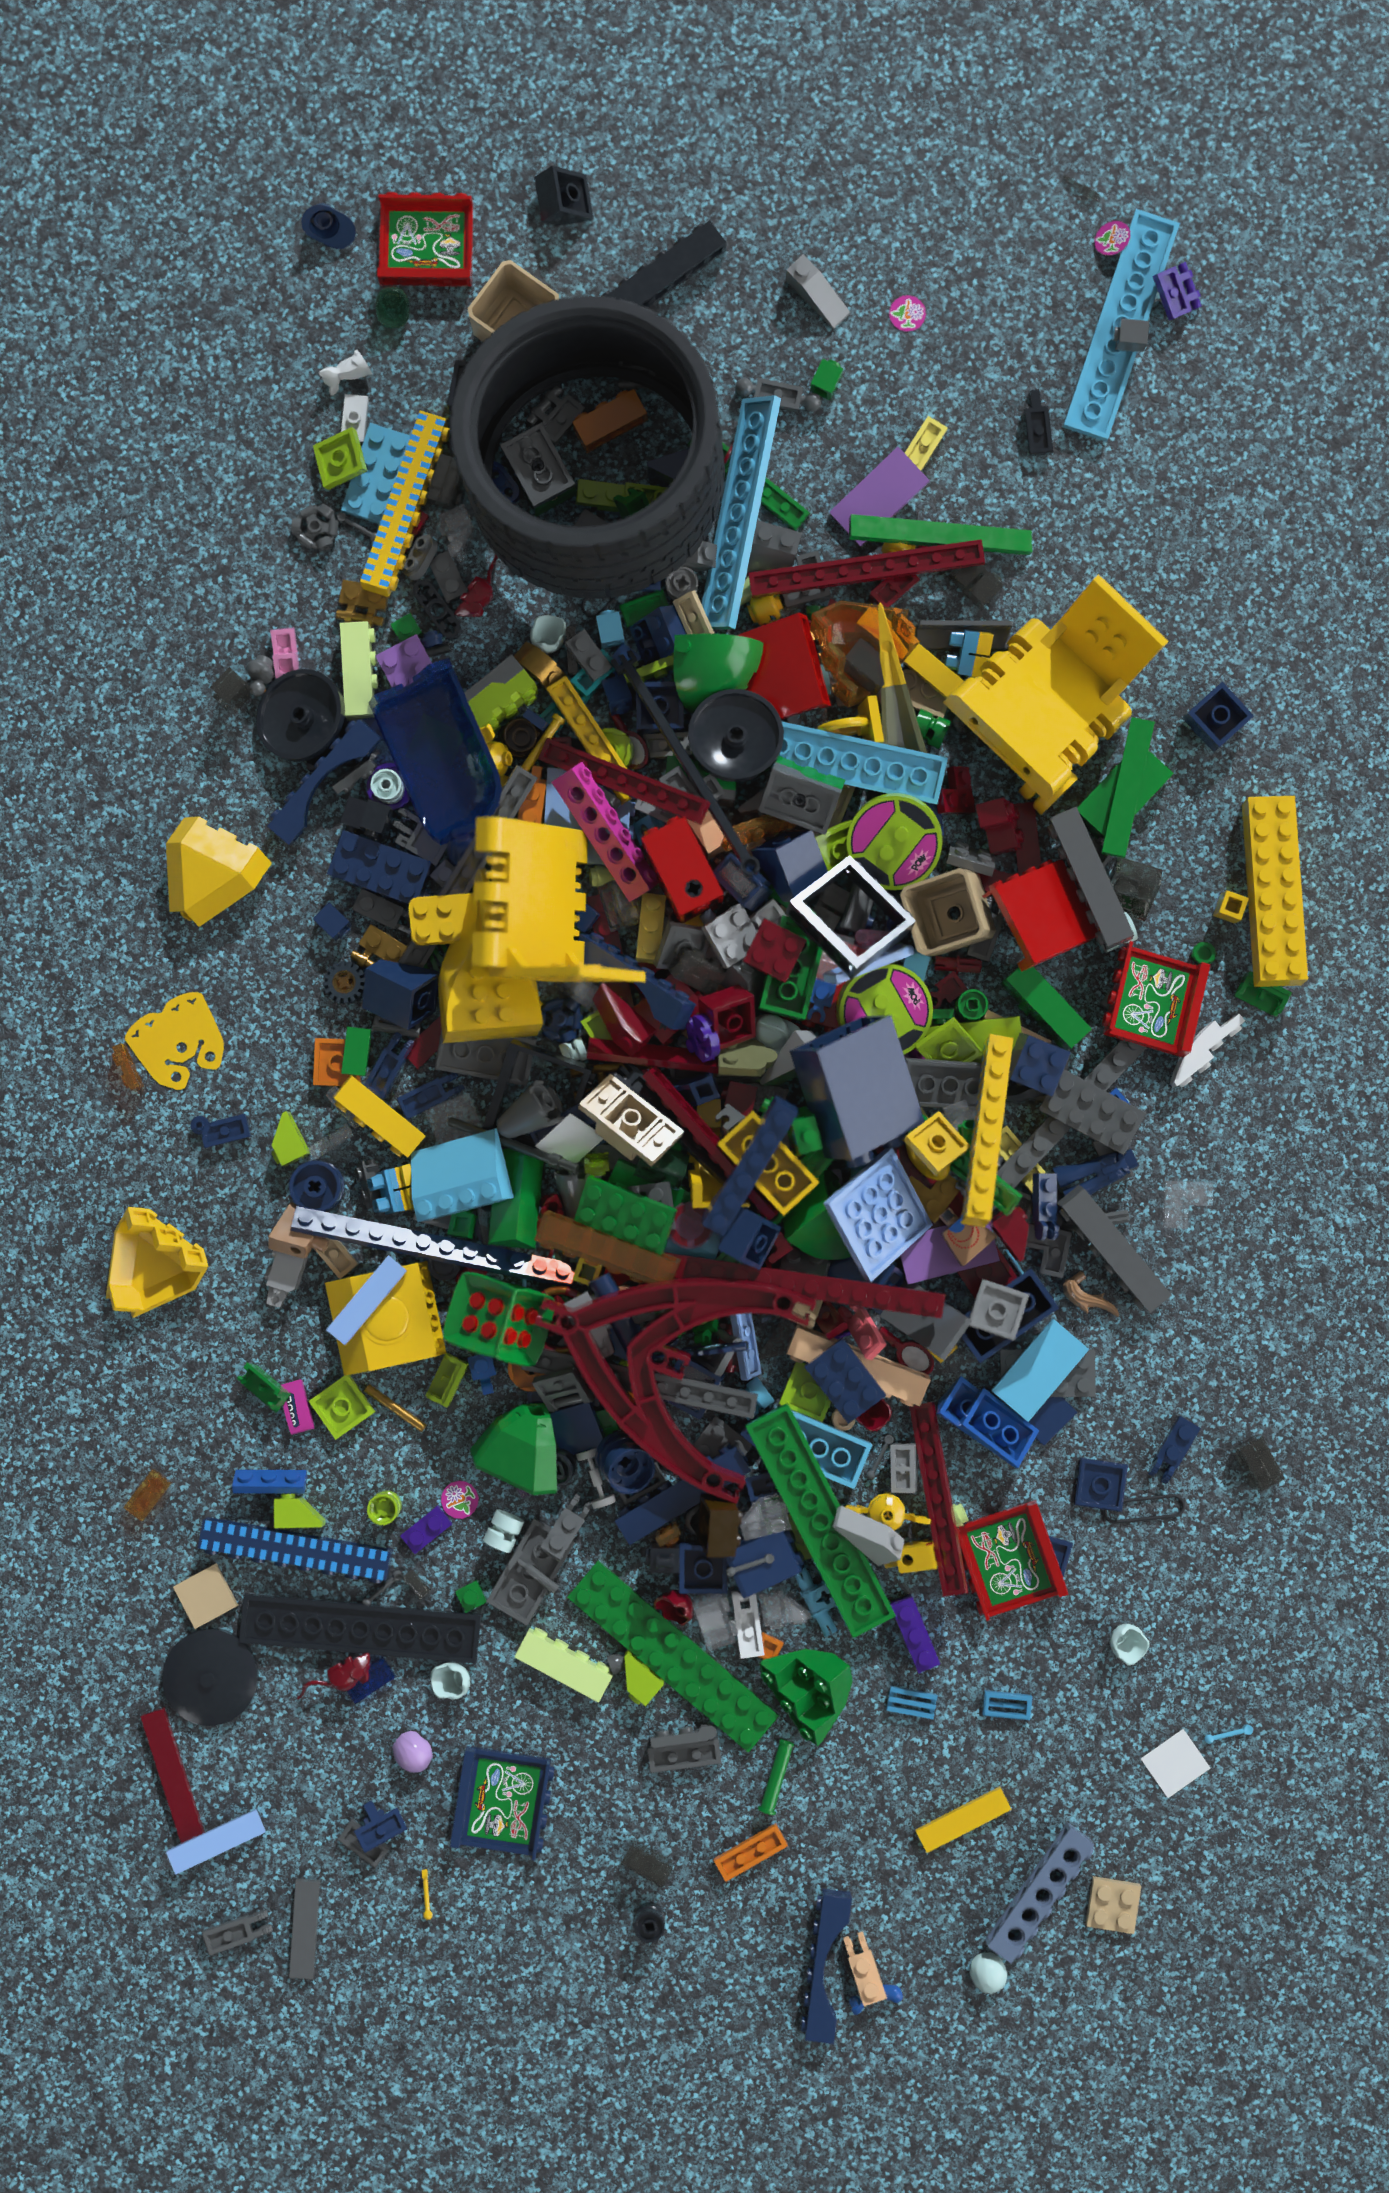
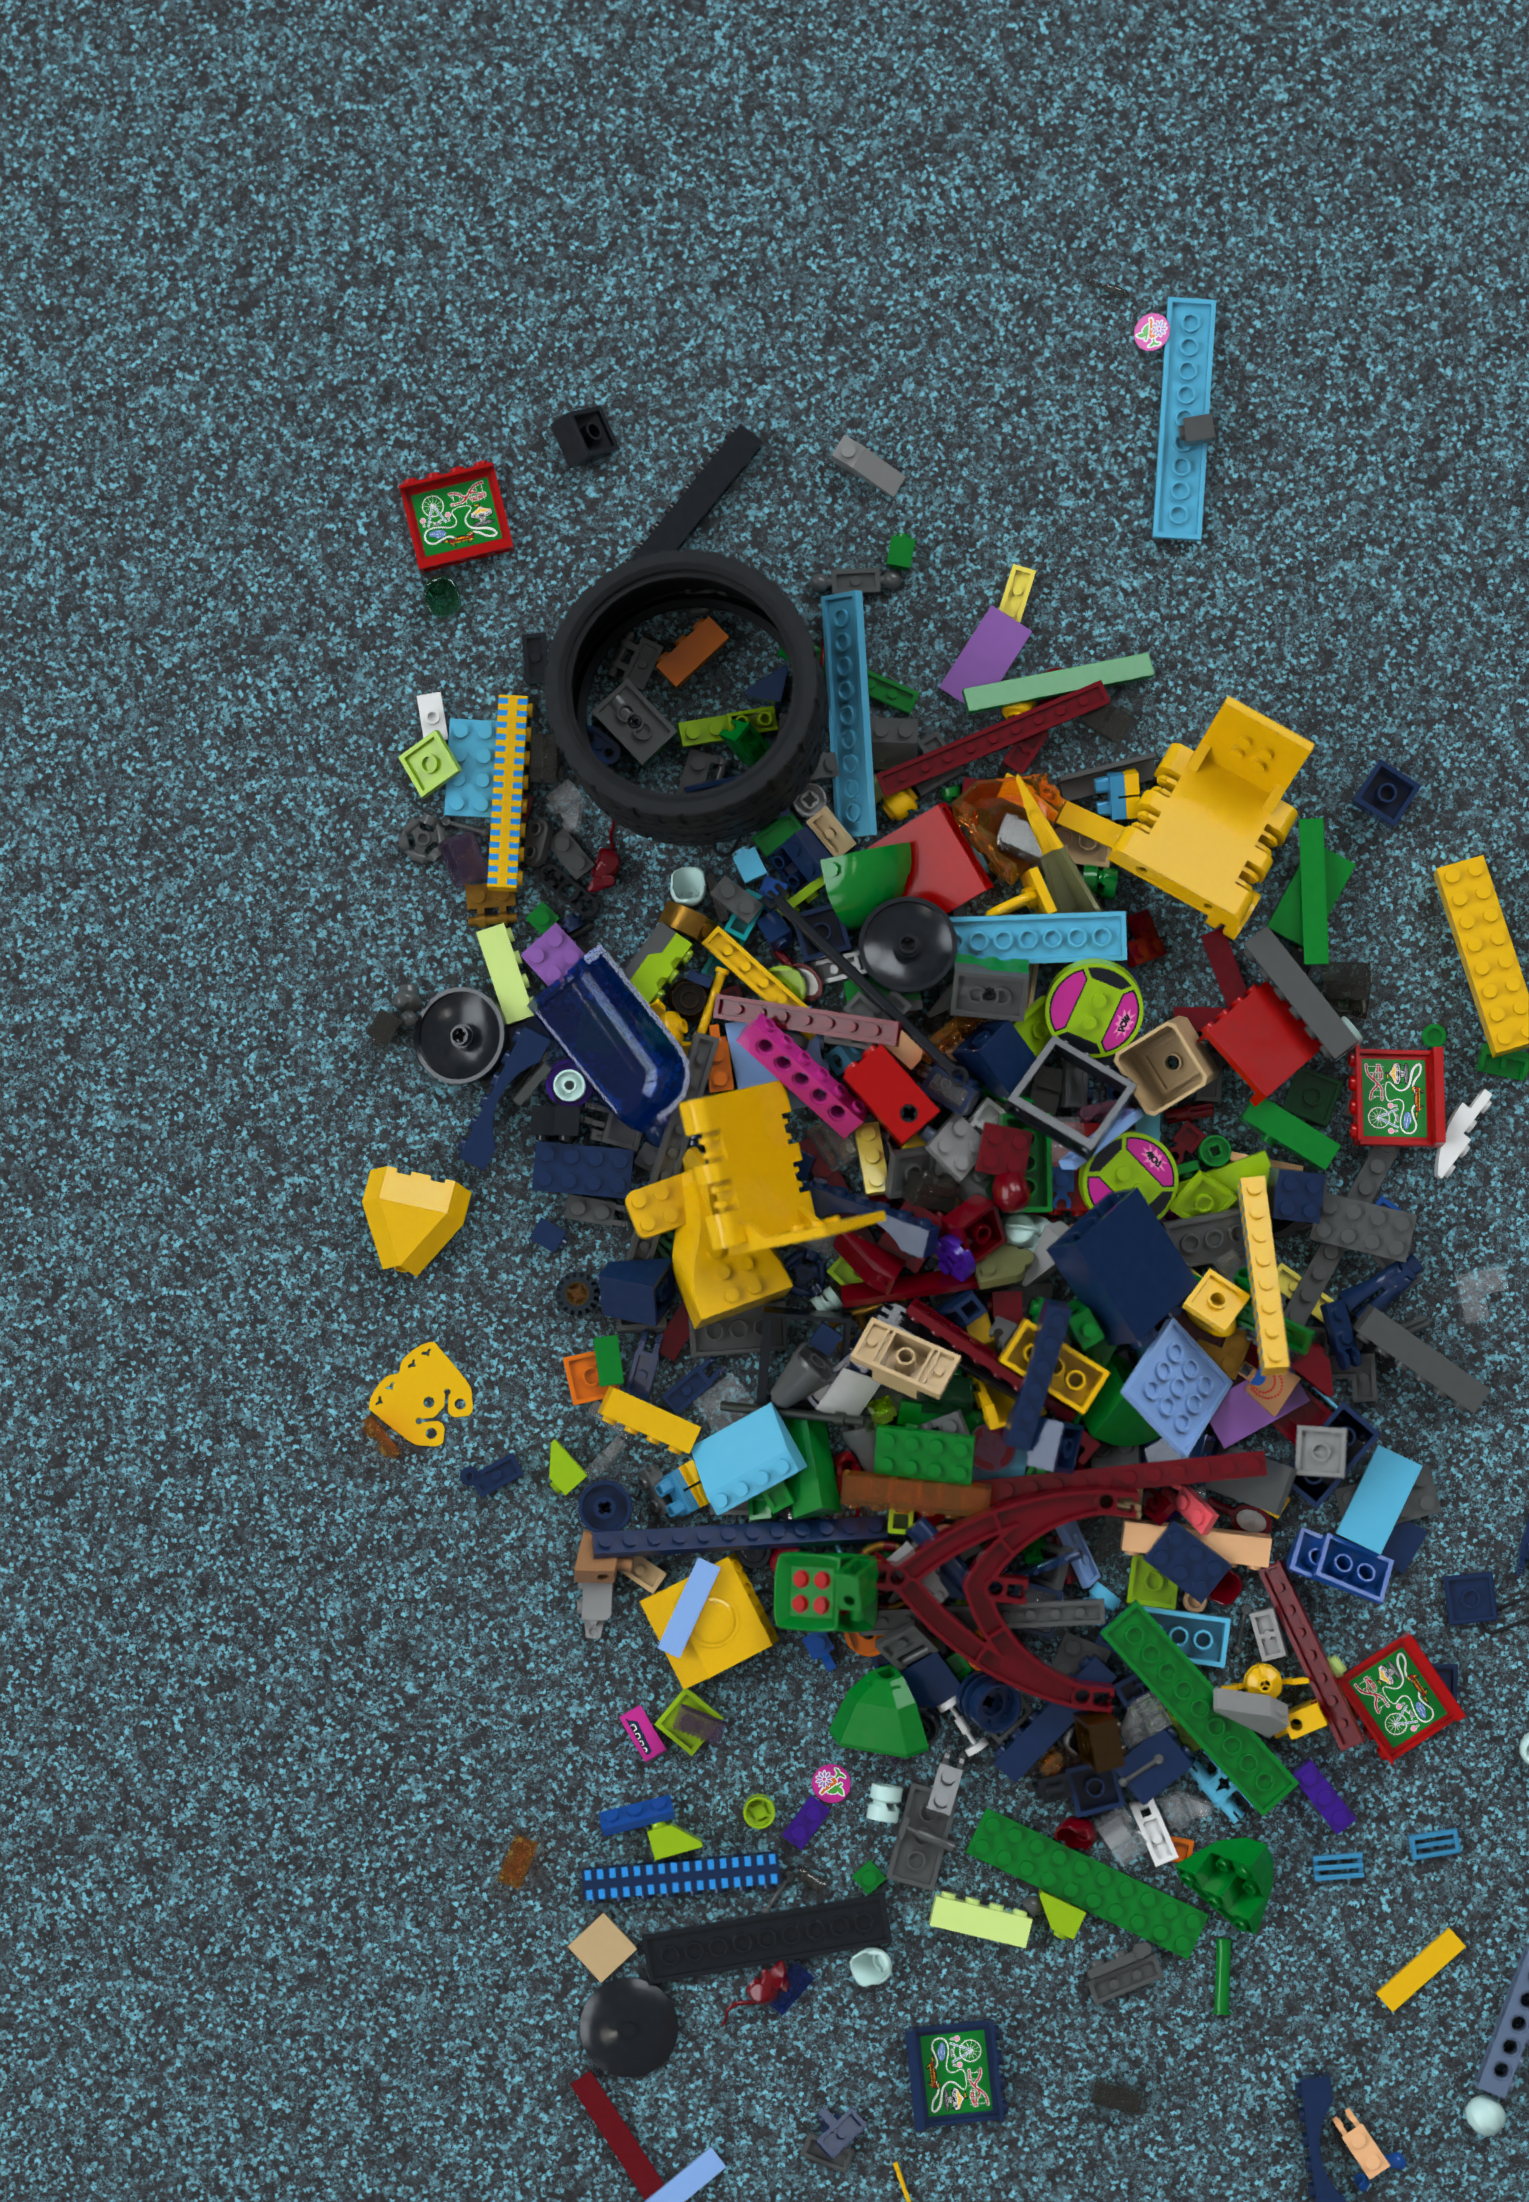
camera: 10 degrees left, 0 degrees up
(151, 1263) = (459, 1628): yellow panel -> none
(264, 1387) = (605, 1722): green hinge -> none
(284, 651) = (425, 973): bright pink slope -> none
(328, 226) = (354, 529): dark blue piece -> none
(346, 553) = (463, 859): none -> clear purple brick
(349, 369) = (414, 670): white animal -> none
(349, 1412) = (699, 1724): none -> brick
(380, 944) = (604, 1246): pearl gold plate -> none
(395, 1408) = (742, 1708): pearl gold bar -> none
(412, 1752) = (851, 2048): lavender hair -> none
(447, 1380) = (786, 1666): lime hinge -> none
(479, 1219) = (778, 1497): none -> green plate
(505, 296) = (559, 555): tan plate -> none
(525, 1320) = (856, 1586): none -> green torso
(561, 1083) = (825, 1339): none -> dark blue tile
(599, 875) = (805, 1118): yellowish green cone -> none
(649, 1922) = (1134, 2154): black wheel -> none
(750, 1852) = (1216, 2058): orange plate -> none
(771, 989) = (1011, 1192): none -> dark red hair
(907, 313) = (964, 462): sticker -> none
(968, 858) = (1174, 1003): dark grey plate -> none
(1000, 822) = (1196, 962): dark red brick -> none
(1038, 426) = (1126, 544): black hinge -> none
(1076, 979) = (1312, 1096): none -> dark green tile
(1084, 1300) = (1405, 1417): medium nougat piece -> none
(1172, 291) = (1227, 374): dark purple plate -> none
(1230, 906) = (1448, 983): yellow brick -> none

